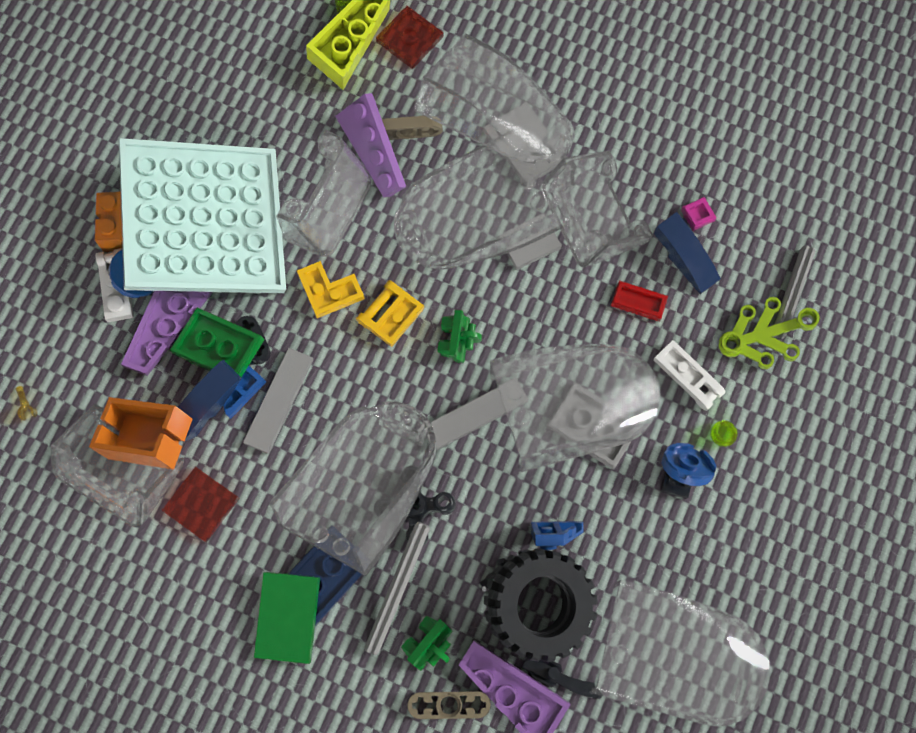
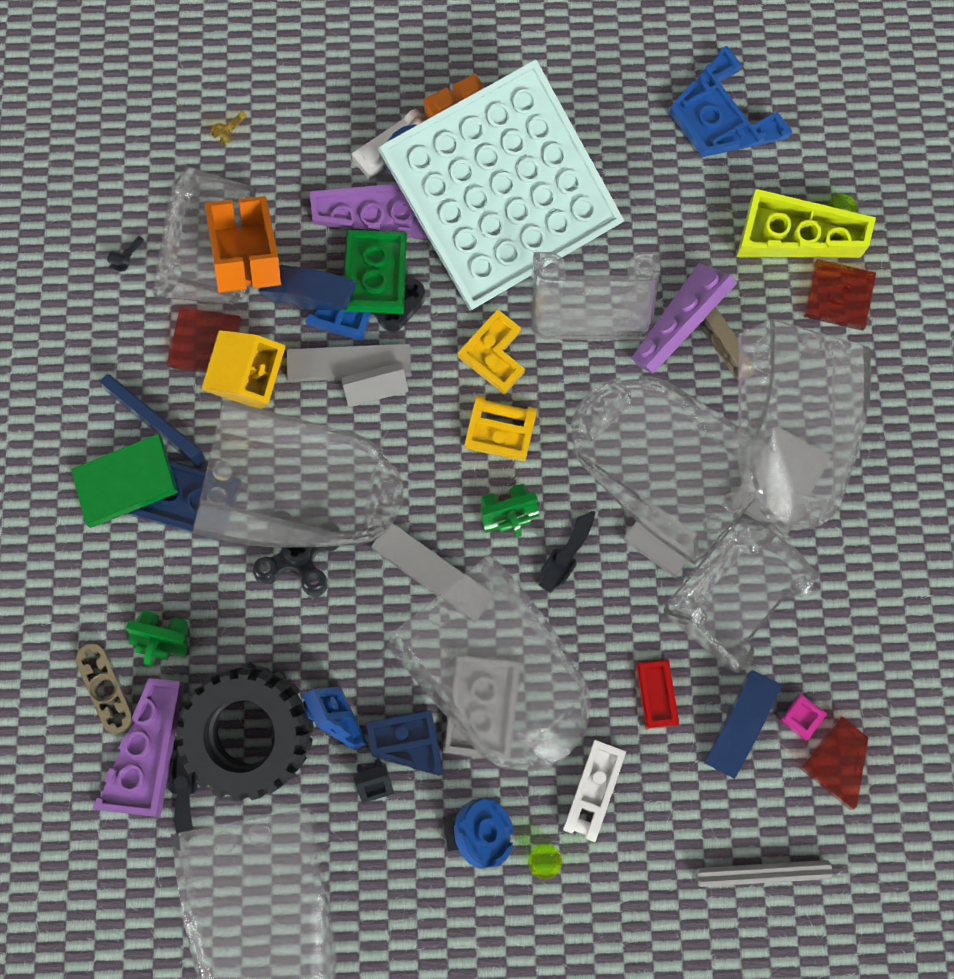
camera: 65 degrees right, 0 degrees up
(93, 542) = (121, 261): none -> black hand
(230, 49) = (714, 120): none -> blue wing
(244, 480) = (243, 368): none -> yellow slope
(246, 573) = (153, 420): none -> dark blue tile
(308, 388) = (374, 384): none -> light grey tile
(397, 588) = (201, 575): light grey axle -> none
(513, 319) = (561, 563): none -> black piece
(595, 490) = (407, 742): none -> dark blue wing
(616, 528) = (373, 782): none -> black tile
(739, 206) = (839, 762): none -> clear red wing
(764, 335) = (690, 857): lime plant -> none

